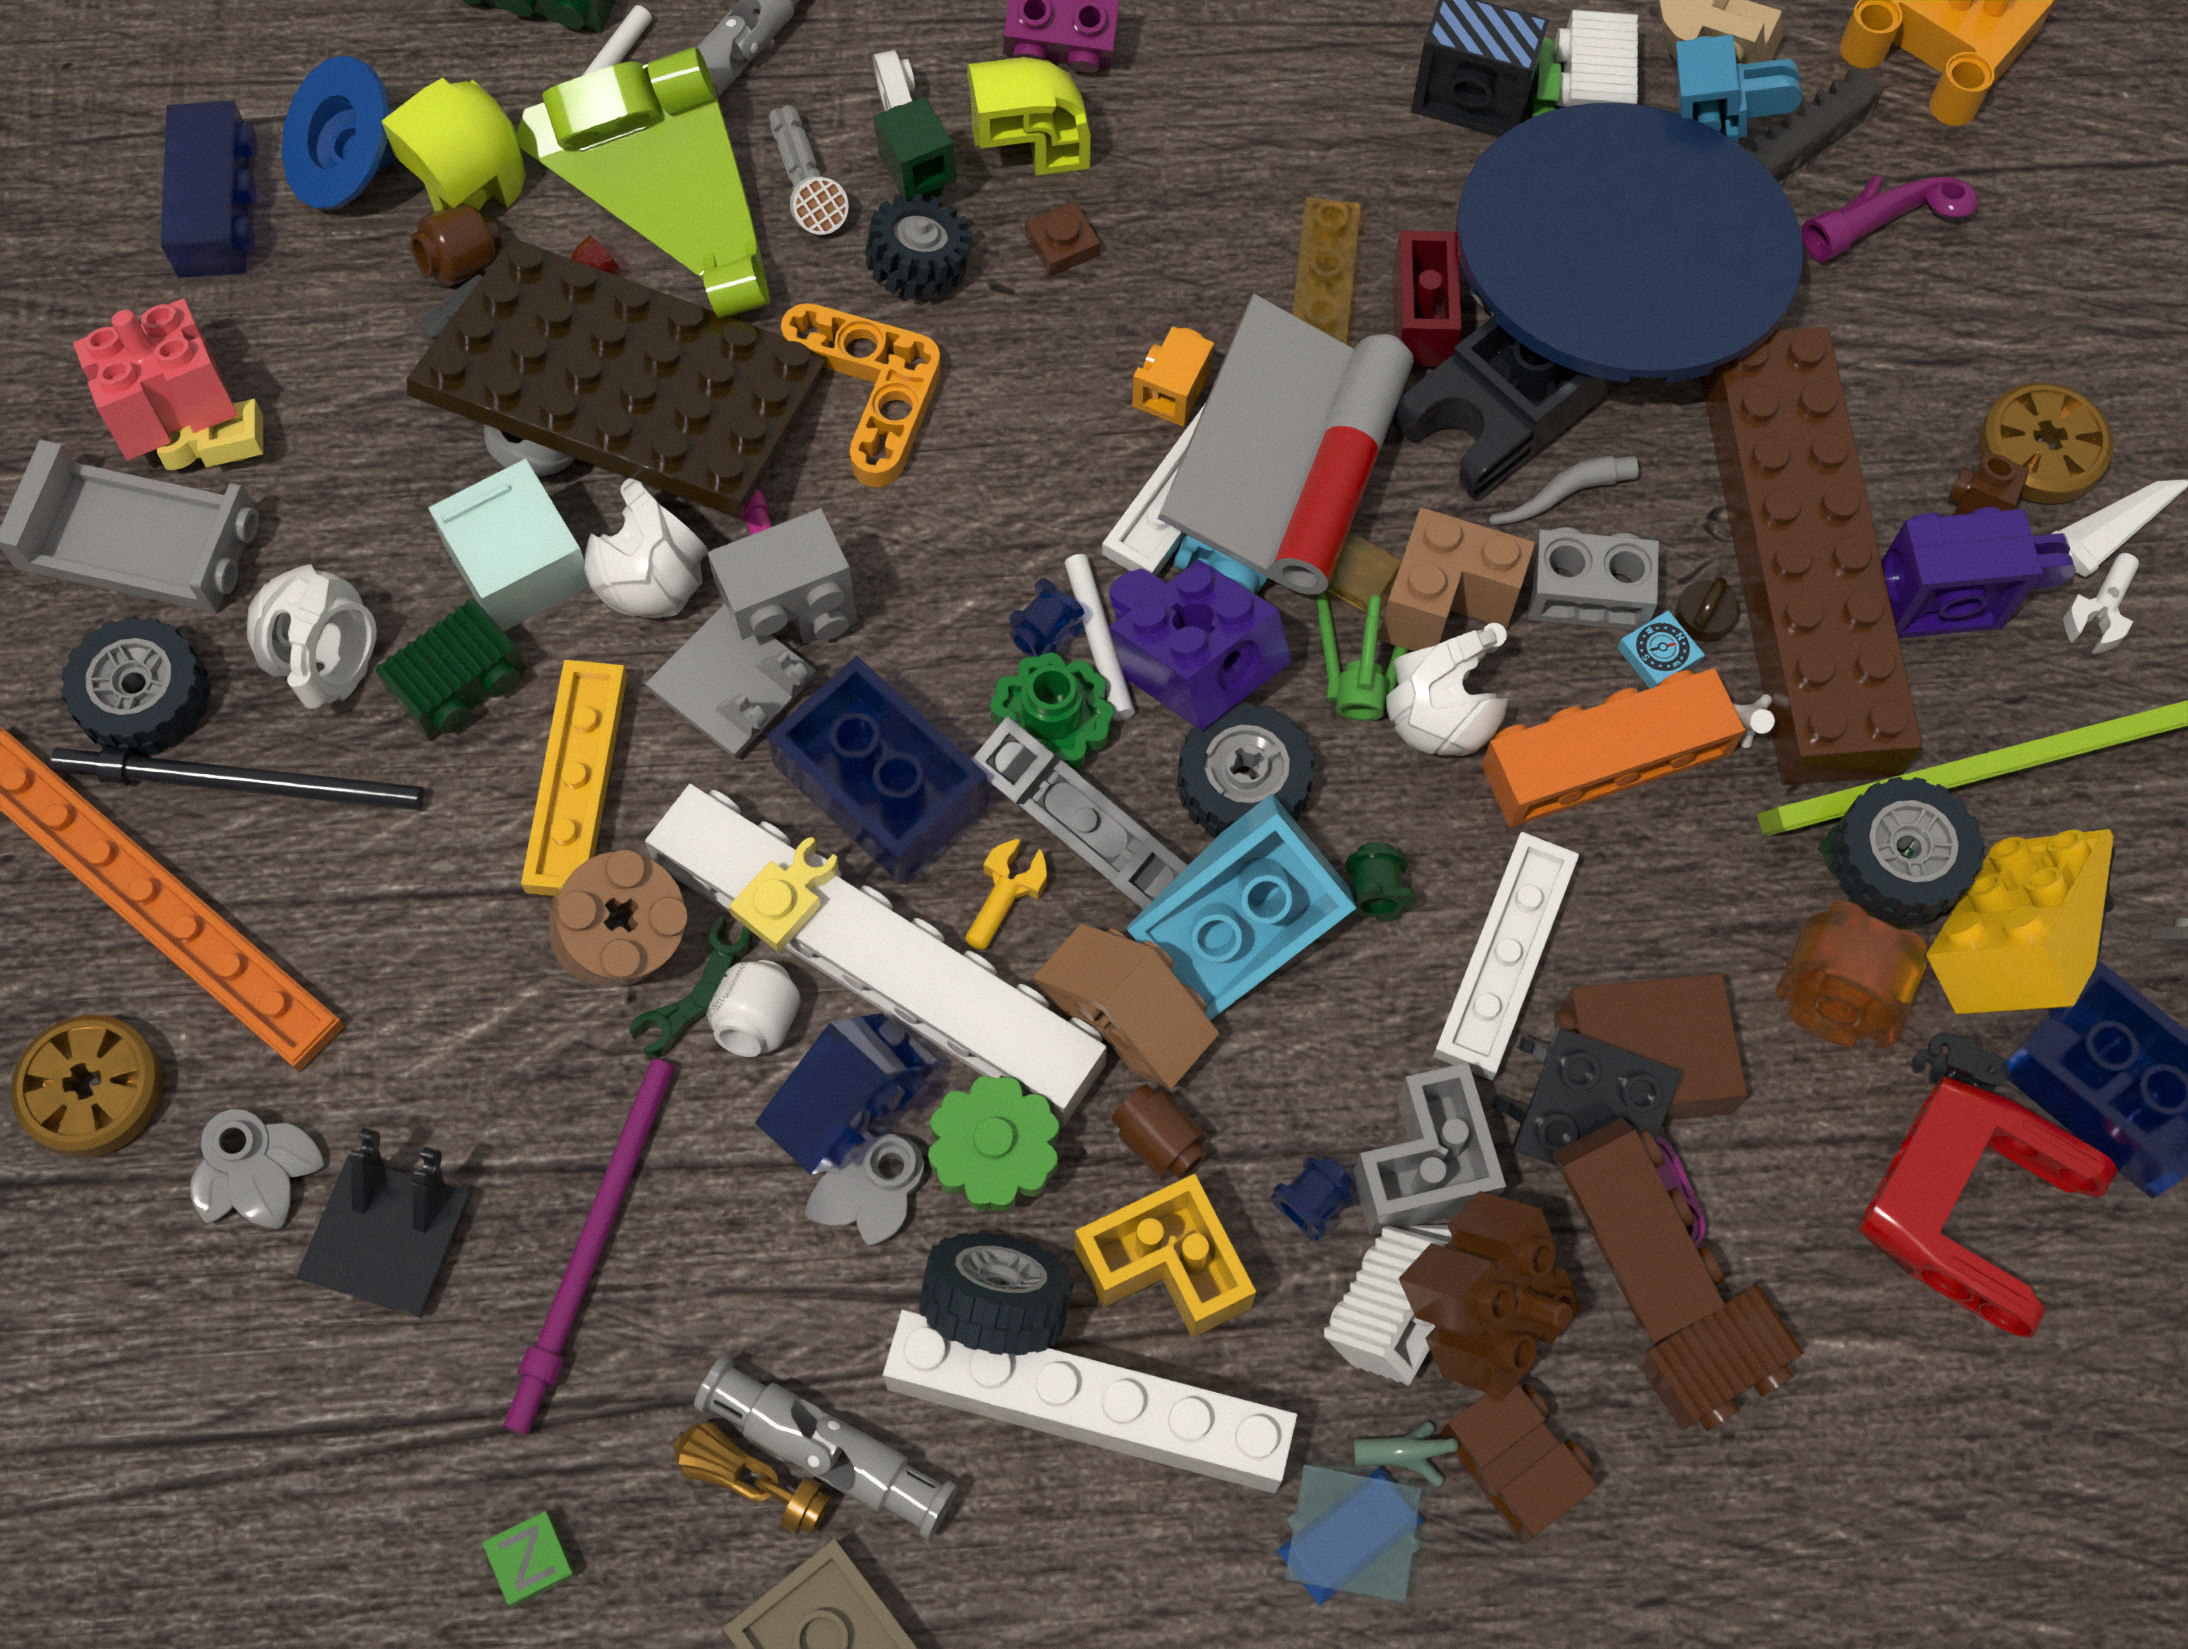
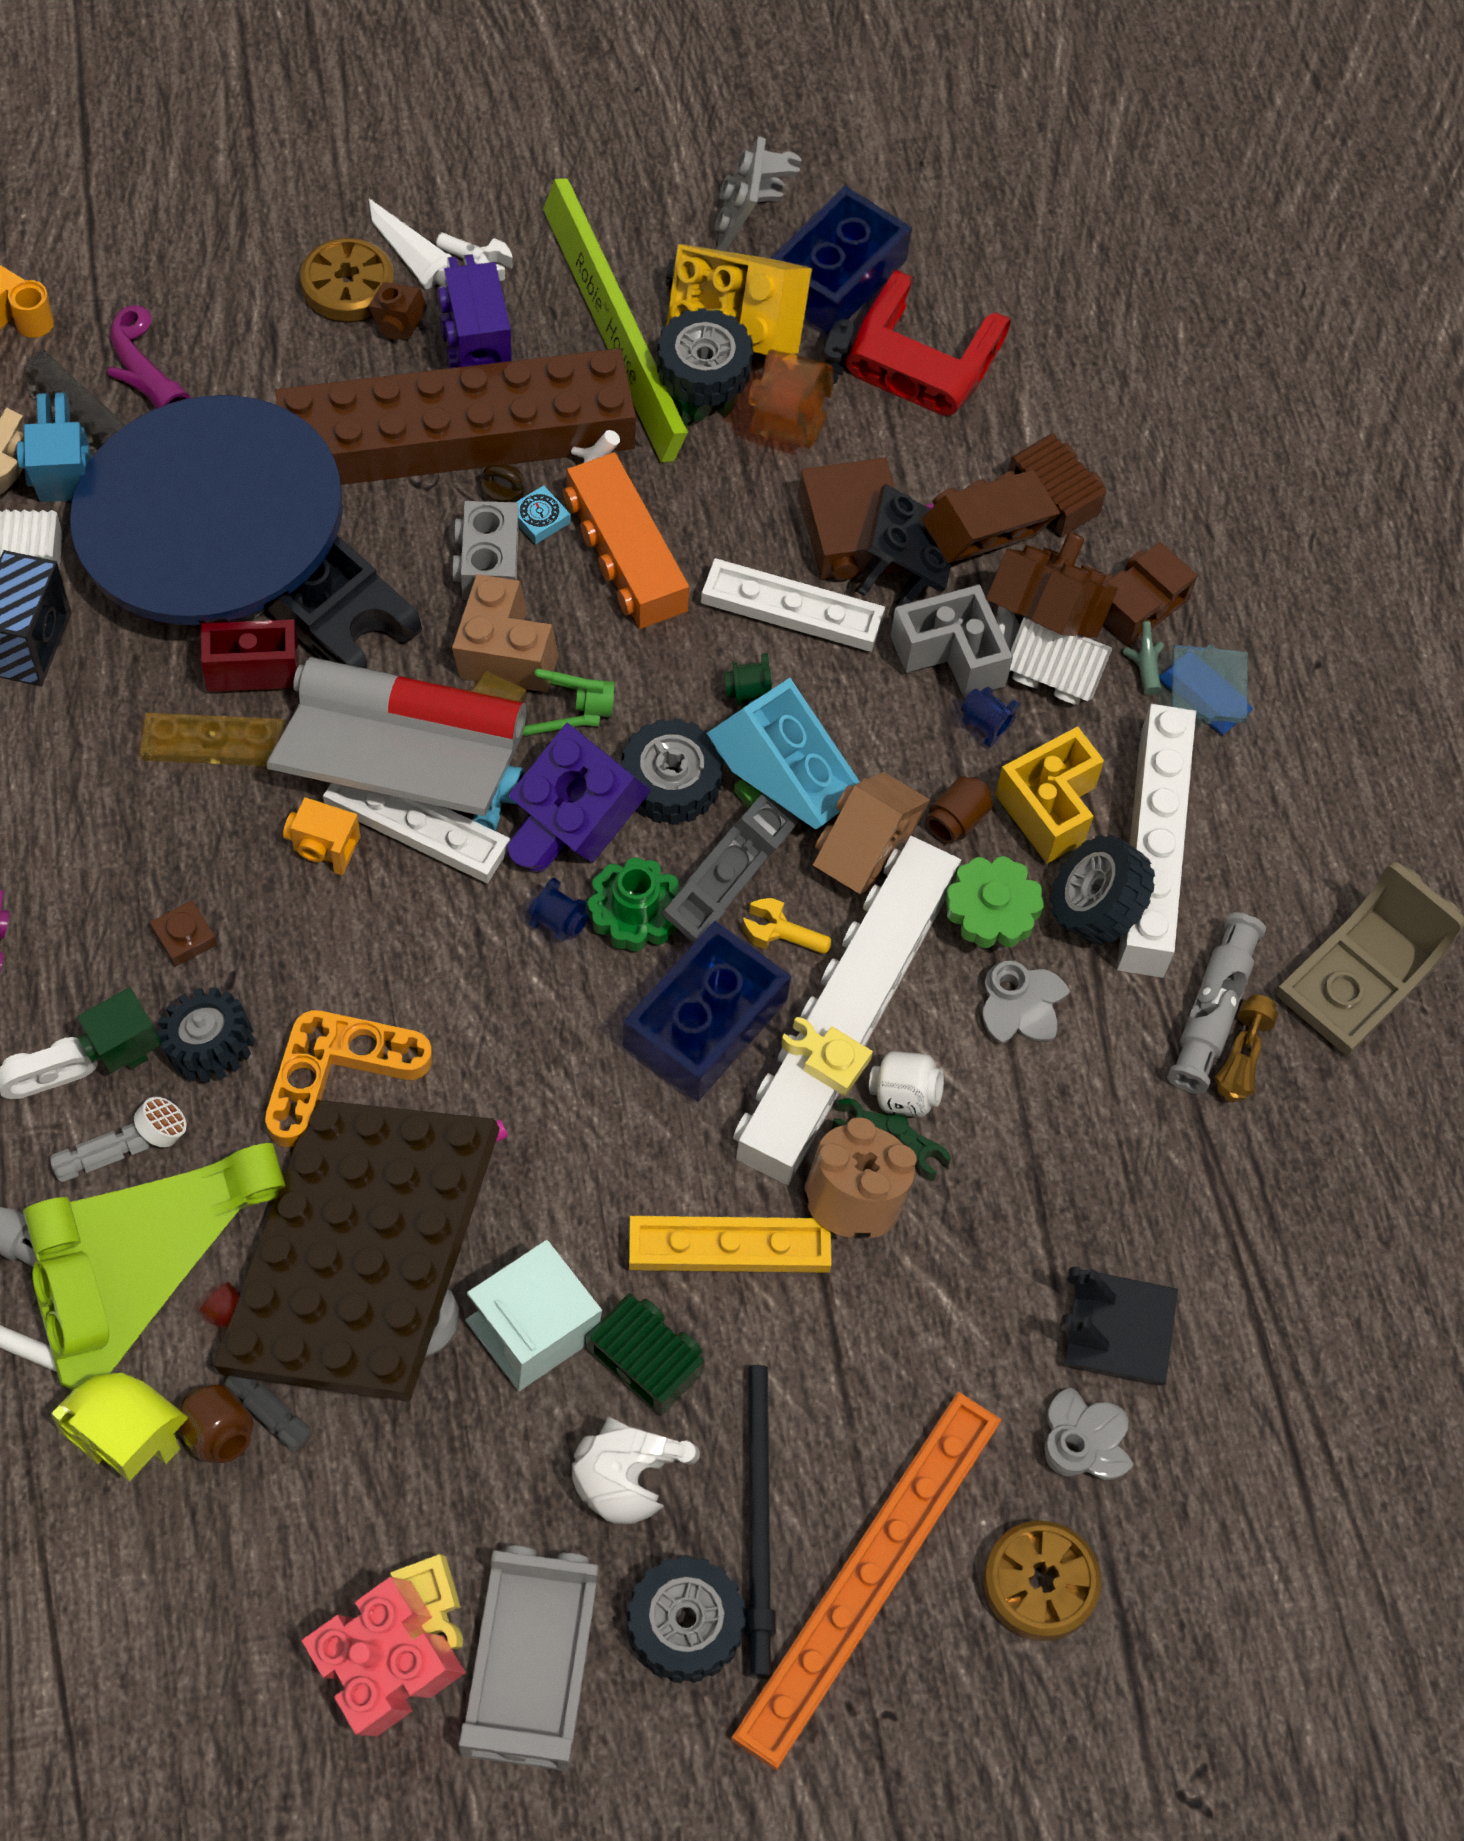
camera: 100 degrees left, 5 degrees down
(207, 189) = (153, 1668): clear blue brick -> none
(336, 133) = (99, 1539): blue piece -> none
(528, 1559) = (1329, 1189): bright green tile -> none
(543, 1364) = (1194, 1200): magenta bar -> none
(649, 563) = (545, 1194): white helmet -> none
(730, 684) = (628, 1137): light grey plate -> none
(787, 576) = (556, 1082): light grey brick -> none
(843, 1083) = (972, 995): clear blue brick -> none
(1033, 104) = (68, 954): neon yellow brick -> none
(1099, 636) = (568, 878): white bar -> none
(1430, 699) = (610, 635): white helmet -> none
(1582, 475) = (394, 564): light grey animal -> none

